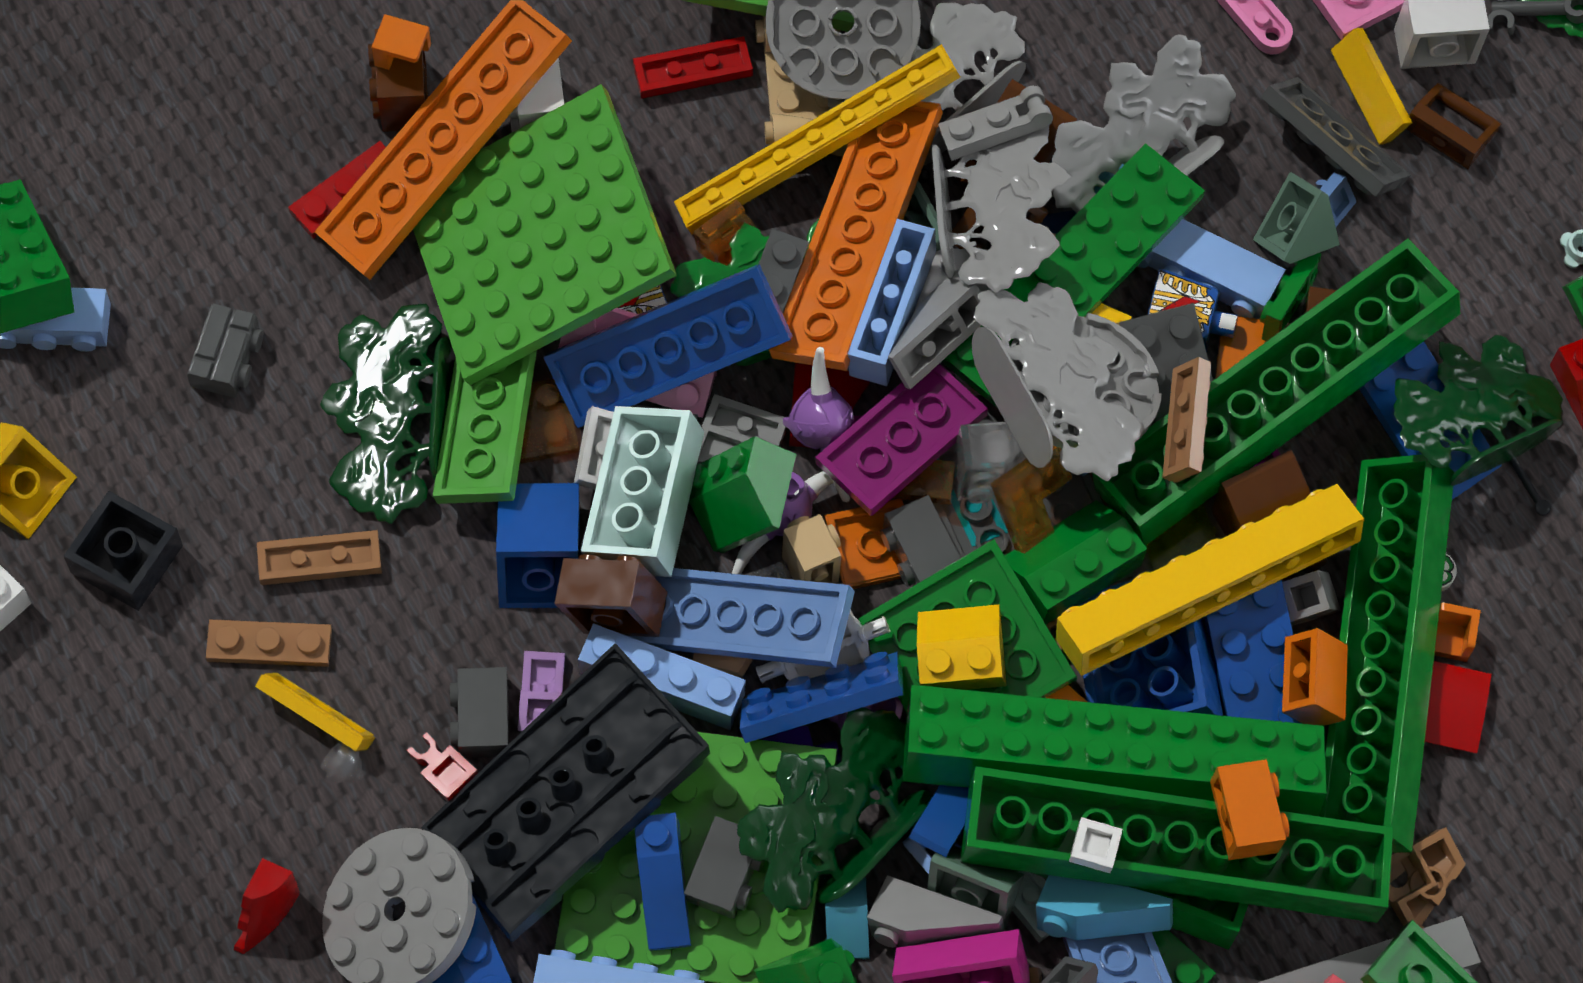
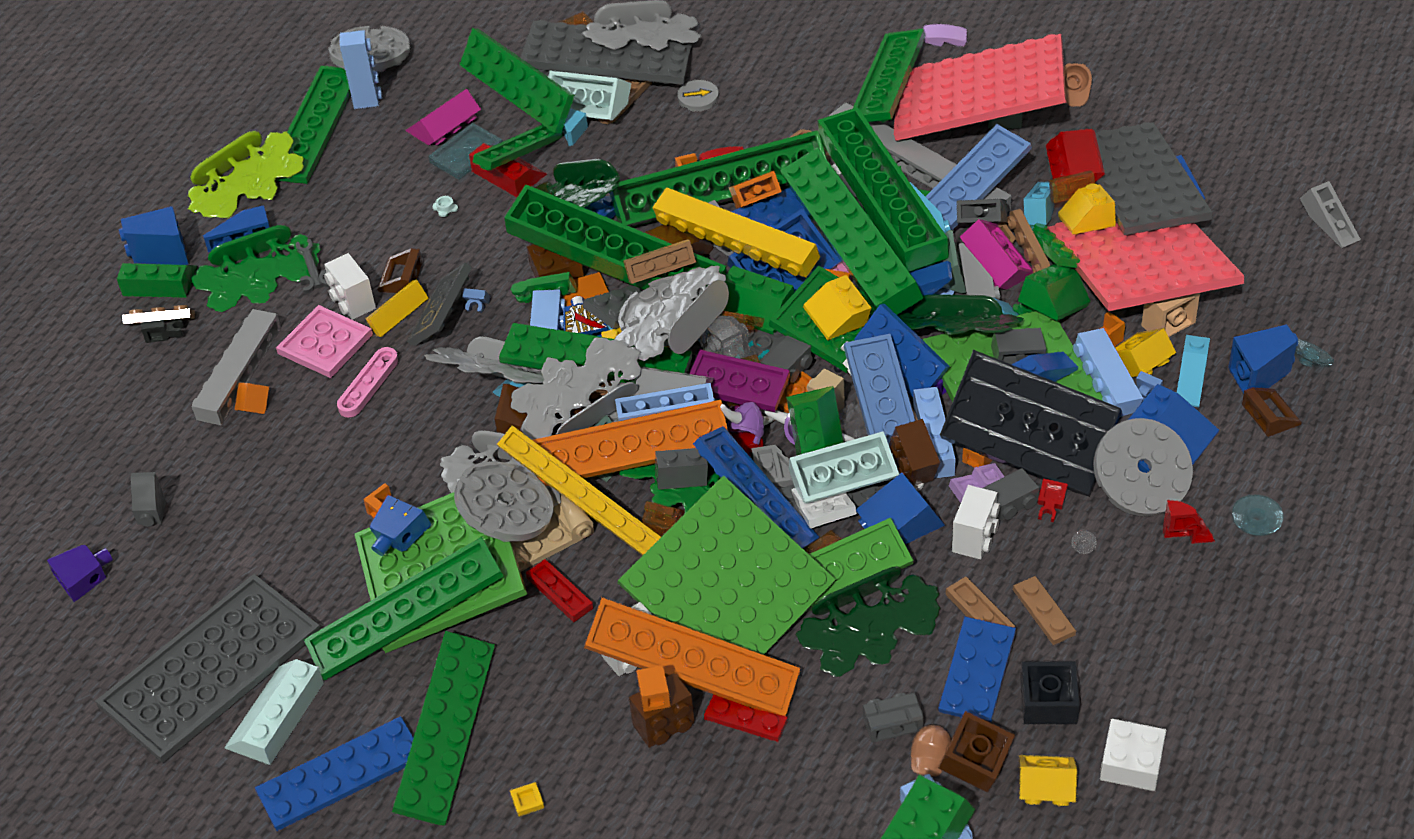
camera: 110 degrees left, 20 degrees down
(95, 406) = (976, 751): none -> reddish brown brick
(151, 376) = (928, 750): none -> nougat piece
(224, 493) = (977, 669): none -> blue plate
(315, 711) = (1066, 564): yellow tile -> none
(450, 620) = (975, 522): none -> white brick
(996, 123) = (529, 411): light grey plate -> none
(1095, 845) = (912, 192): white plate -> none
(1249, 809) = (852, 154): orange brick -> none
(1298, 222) = (503, 294): sand green slope -> none

